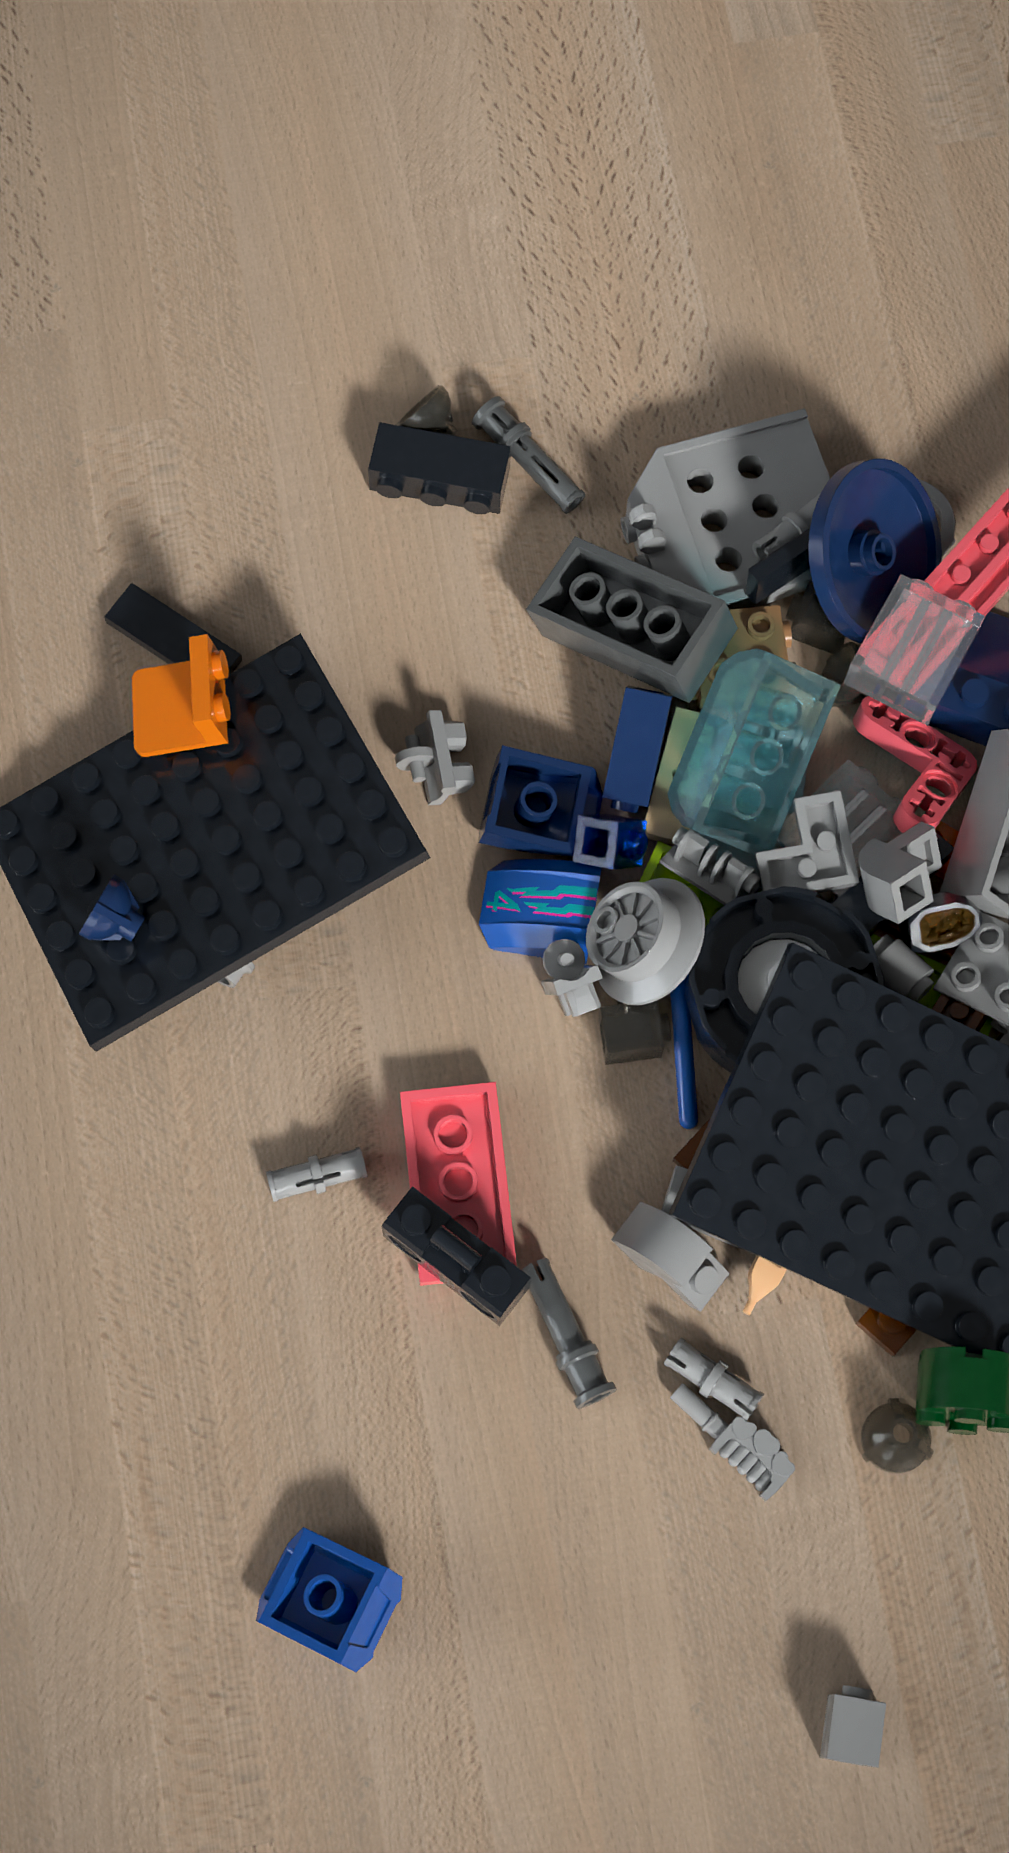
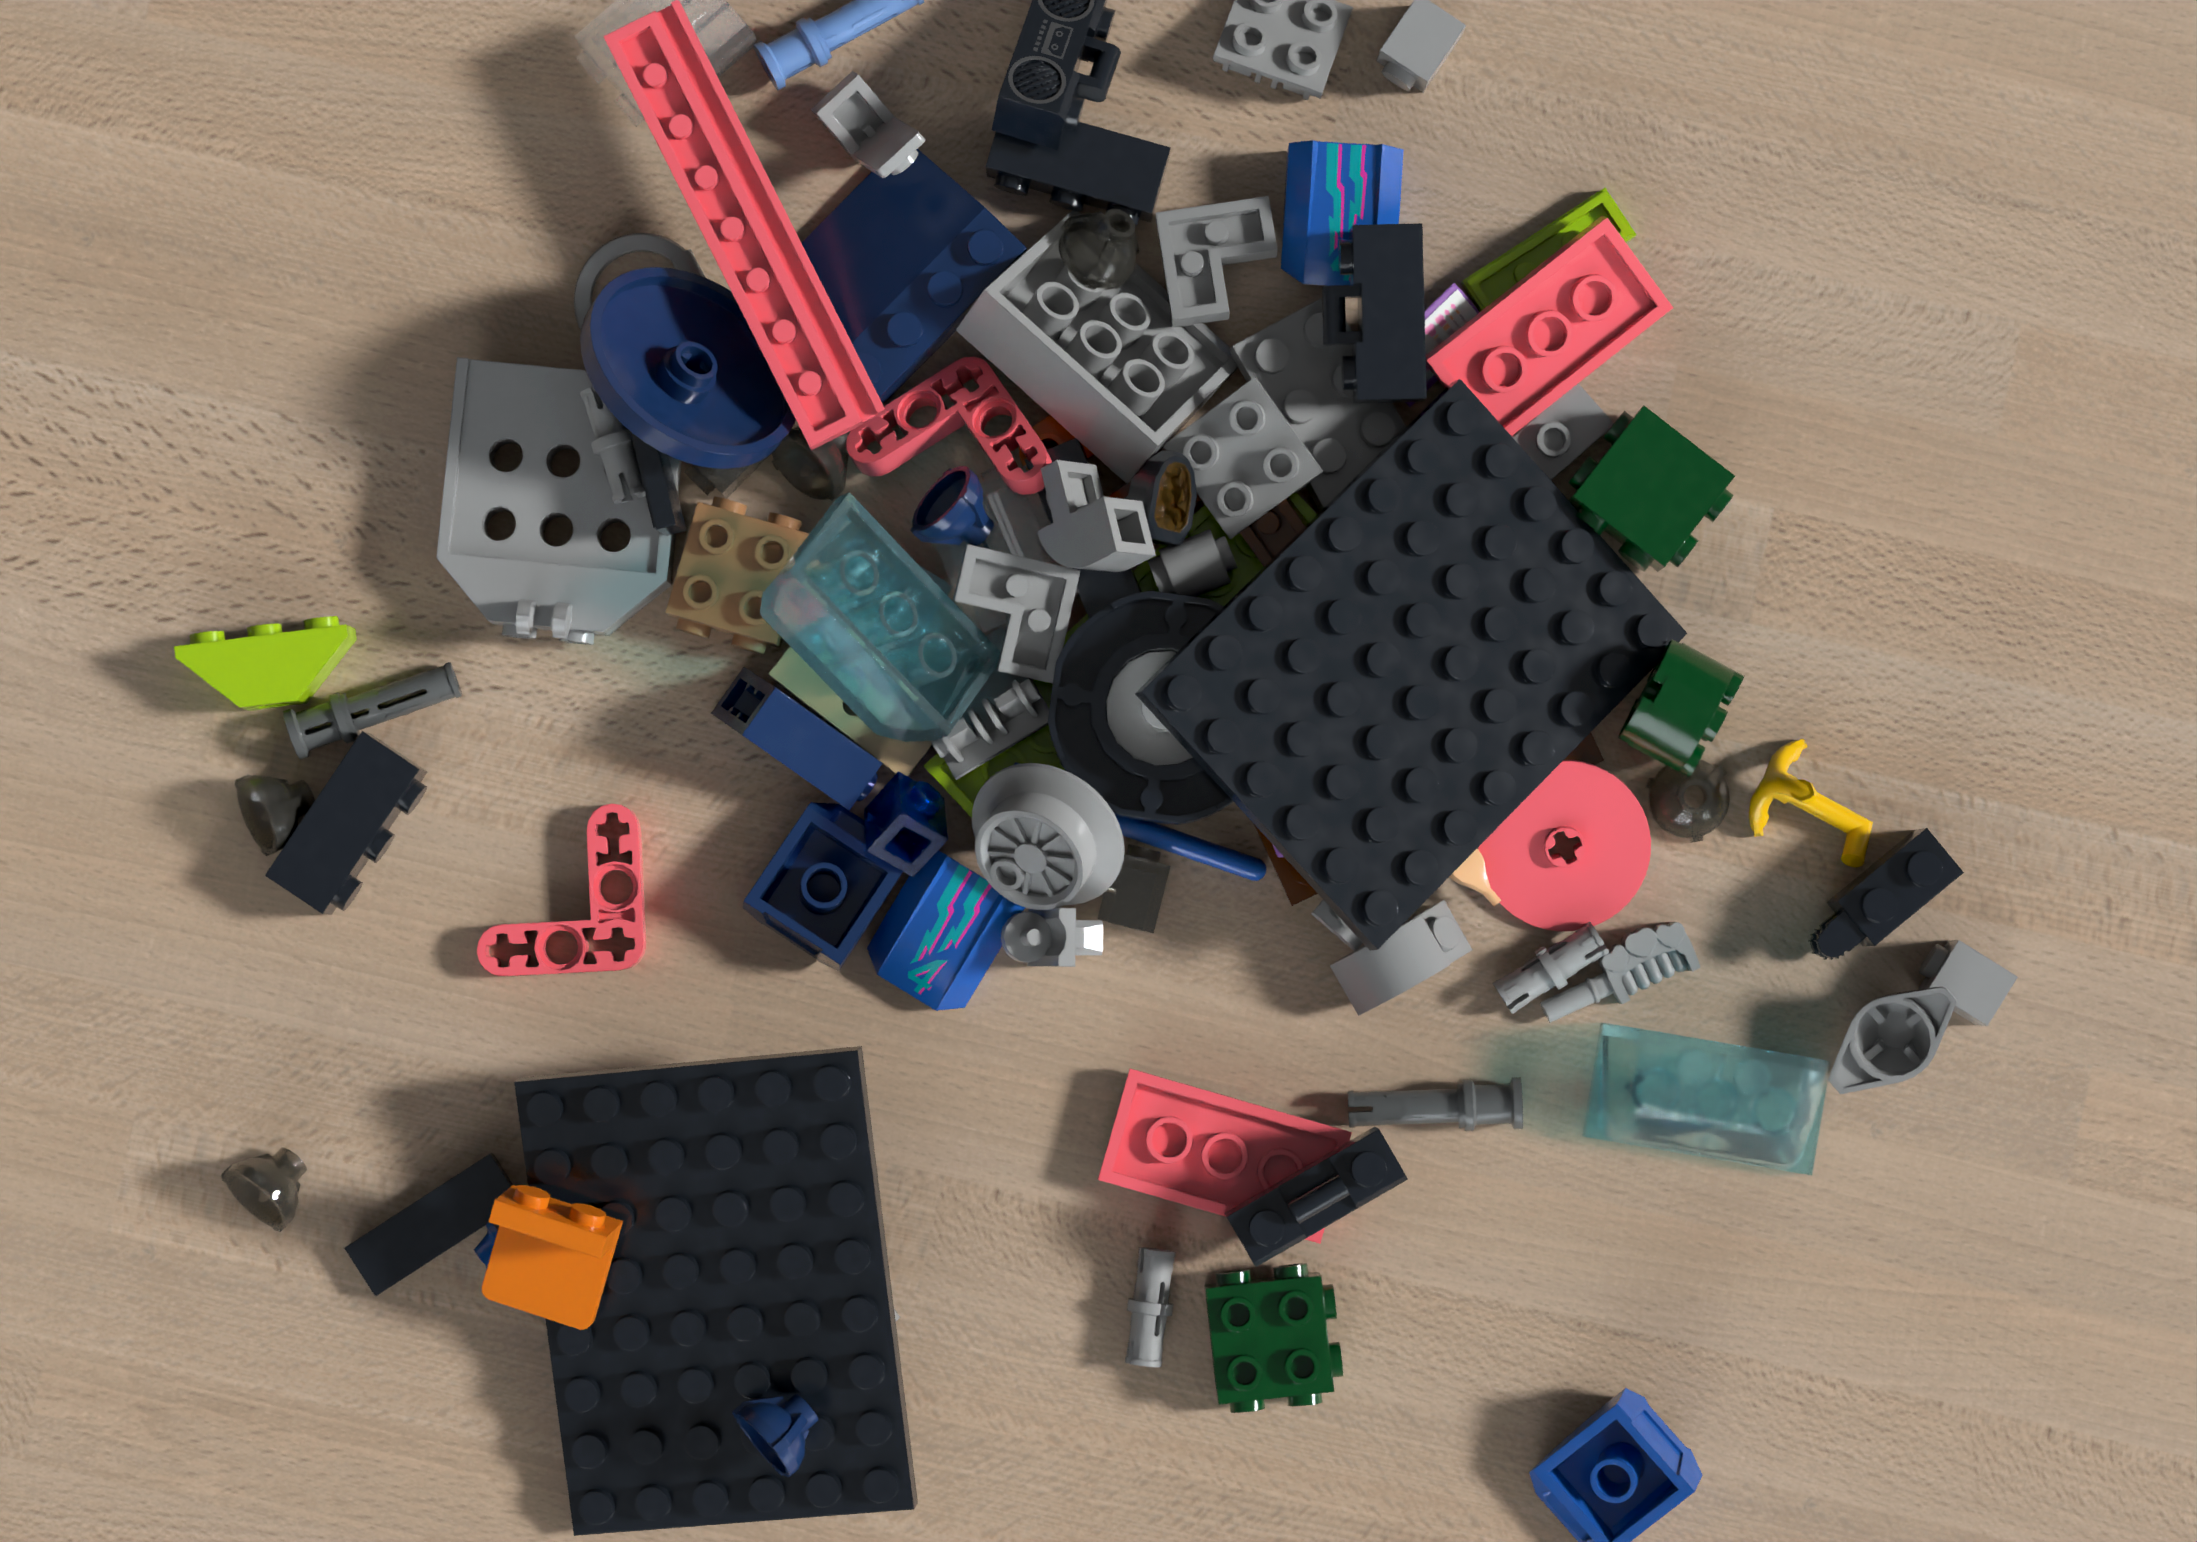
camera: 70 degrees left, 15 degrees up
(156, 515) = (267, 1186): none -> clear smoke piece
(330, 1275) = (1272, 1337): none -> dark green brick
(430, 758) = (716, 985): light grey hips -> none
(446, 667) = (603, 914): none -> coral beam
(531, 378) = (269, 664): none -> lime slope
(632, 619) = (649, 685): dark grey brick -> none
(666, 1551) = (1706, 1098): none -> clear light blue windscreen
(780, 1678) = (1892, 1039): none -> light grey hat
(816, 1389) = (1606, 863): none -> coral piece
(858, 777) = (953, 510): none -> dark blue piece
(894, 1628) = (1885, 895): none -> black hinge
(914, 649) = (838, 384): clear brick -> none
(943, 1516) = (1802, 794): none -> yellow piece

